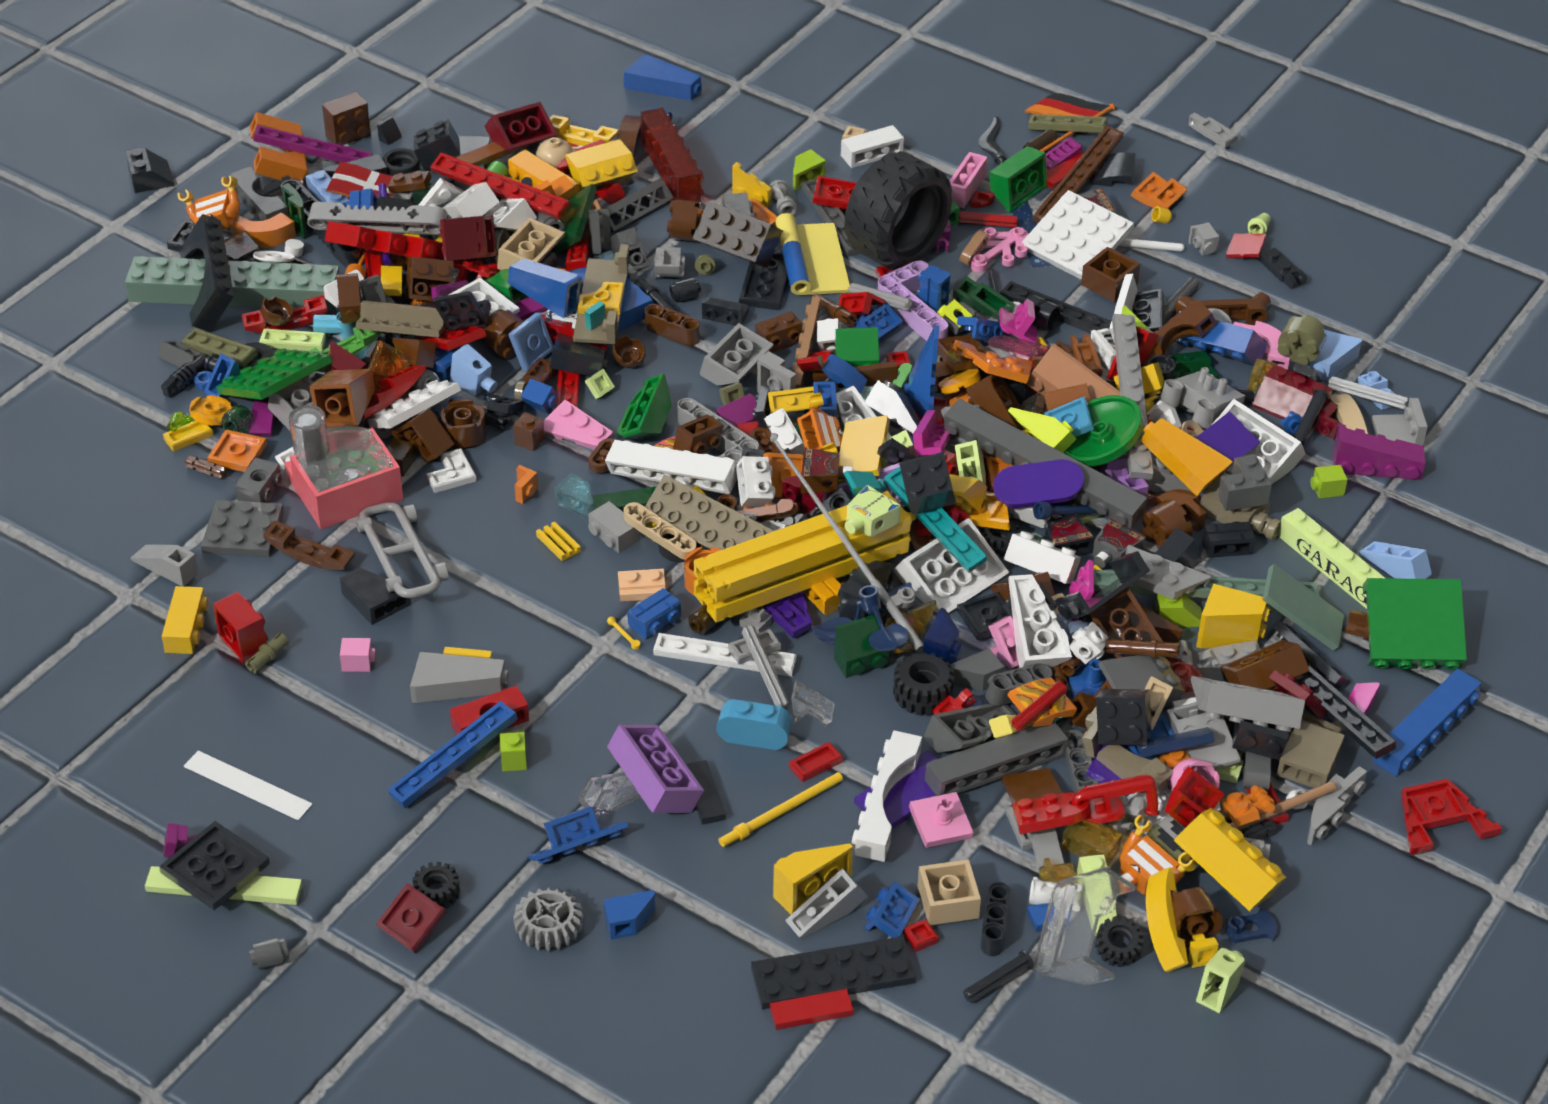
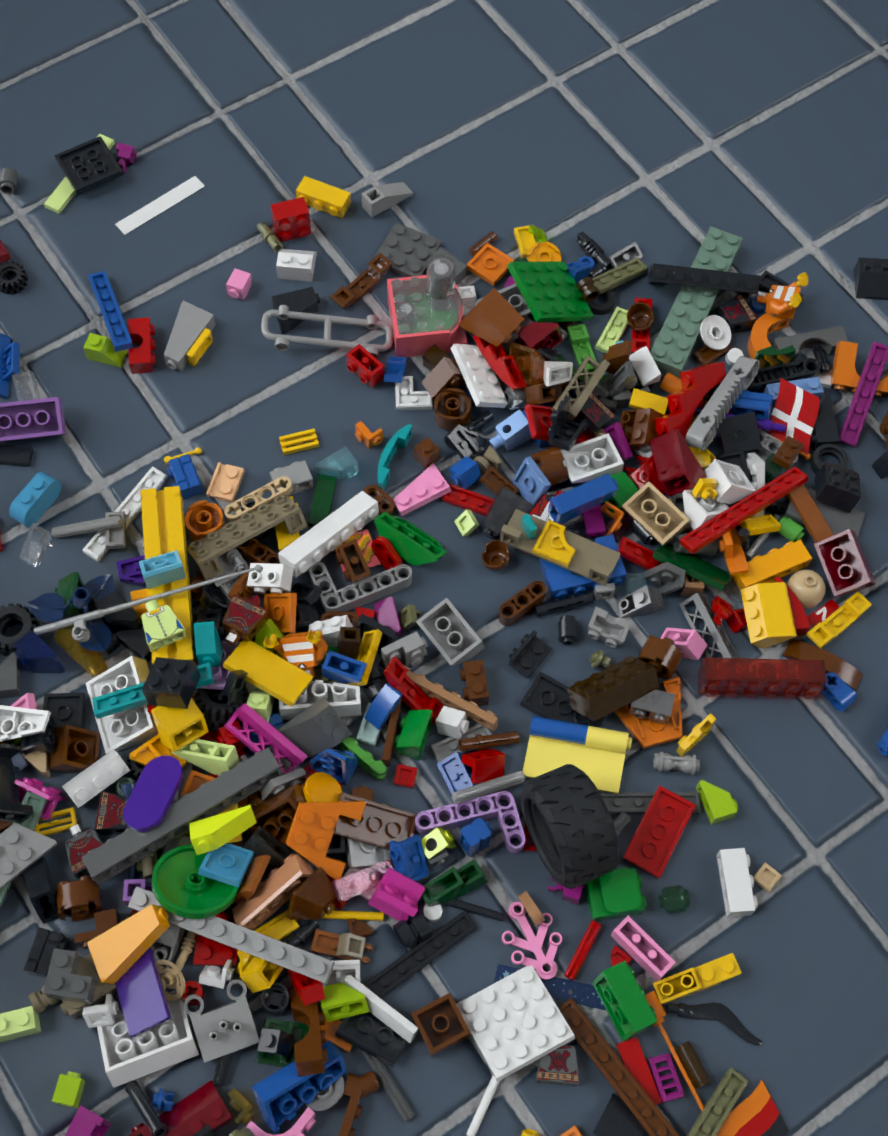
camera: 110 degrees right, 20 degrees up
(255, 350) = (588, 289): none -> dark brown wheel
(300, 613) = (296, 265): none -> white slope
(396, 334) = (557, 372): none -> white slope
(421, 489) = (395, 369): none -> blue slope
(435, 505) = (365, 366): none -> red brick
(492, 207) = (705, 488): none -> yellow tile
(508, 383) = (492, 458): none -> dark tan slope
(545, 462) = (399, 439): none -> teal slope
(608, 198) = (721, 609): none -> red plate
(657, 216) = (687, 641): none -> bright pink slope
(667, 425) = (385, 553): none -> red plate
(794, 405) = (349, 642): none -> dark brown brick
(806, 530) = (162, 569): none -> medium azure slope
(961, 145) = (697, 979): none -> yellow slope
(1083, 343) = (350, 946): none -> dark tan slope
(1197, 356) = (275, 1043): none -> black brick

